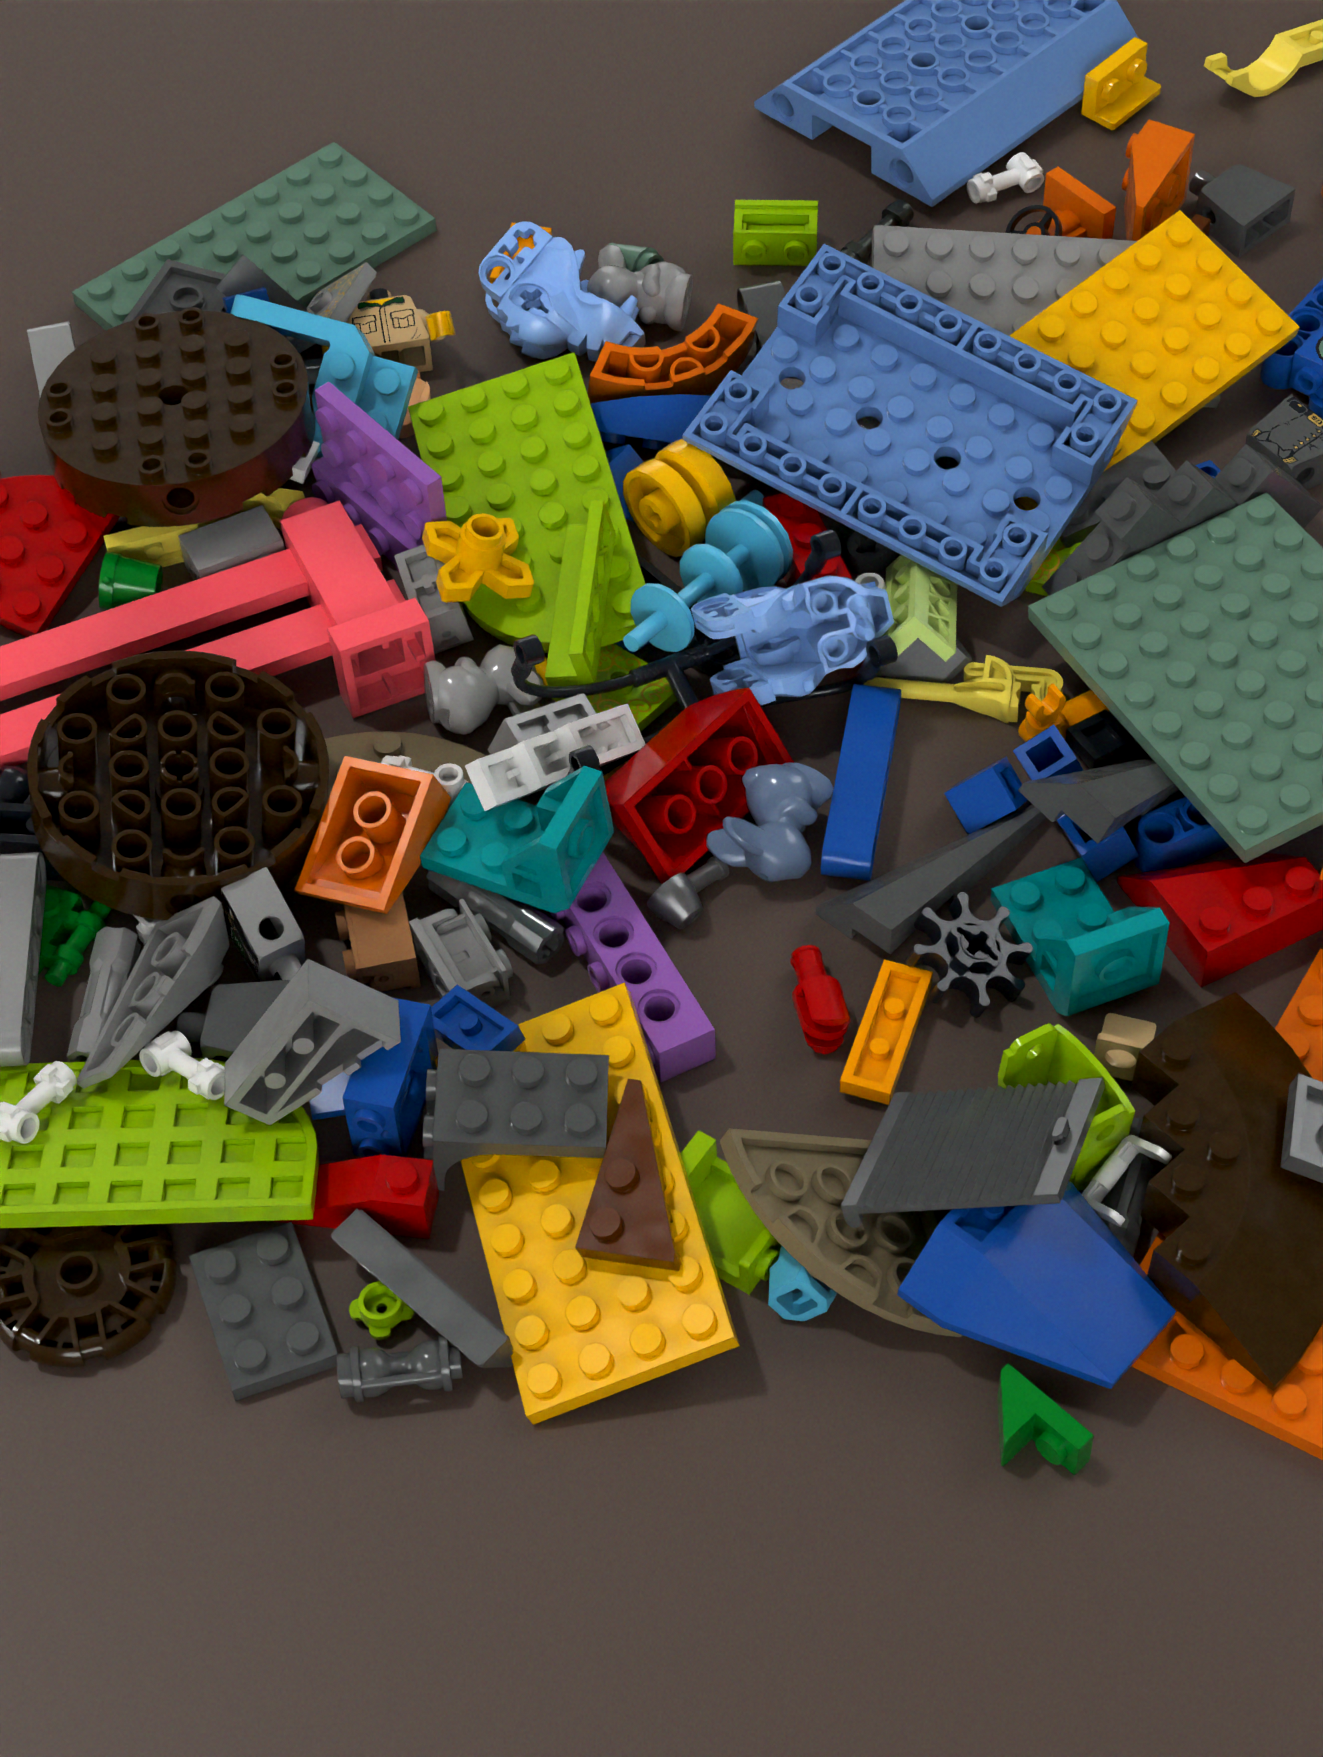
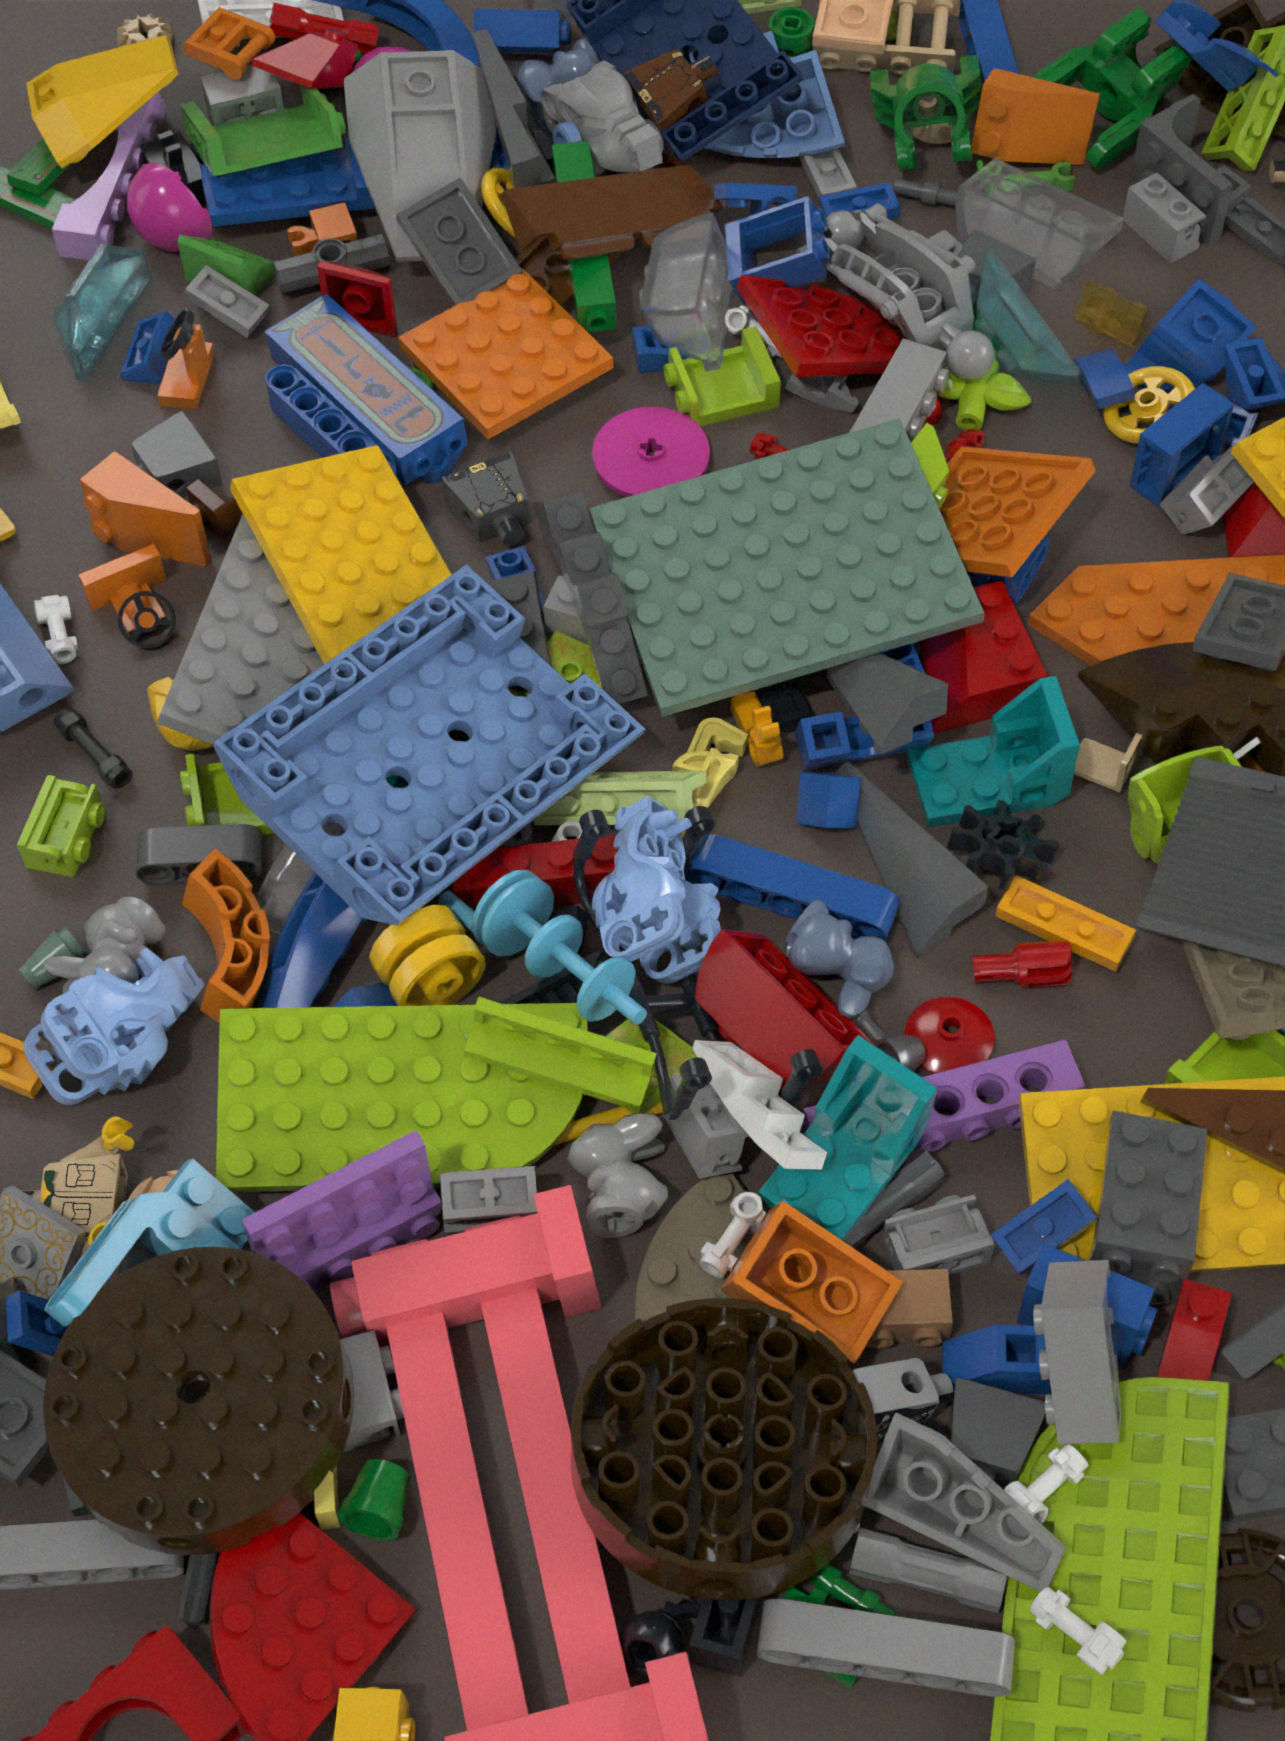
camera: 80 degrees left, 5 degrees up
(477, 555) = (480, 1133): yellow plant -> none
(724, 967) = (947, 1050): none -> red dish

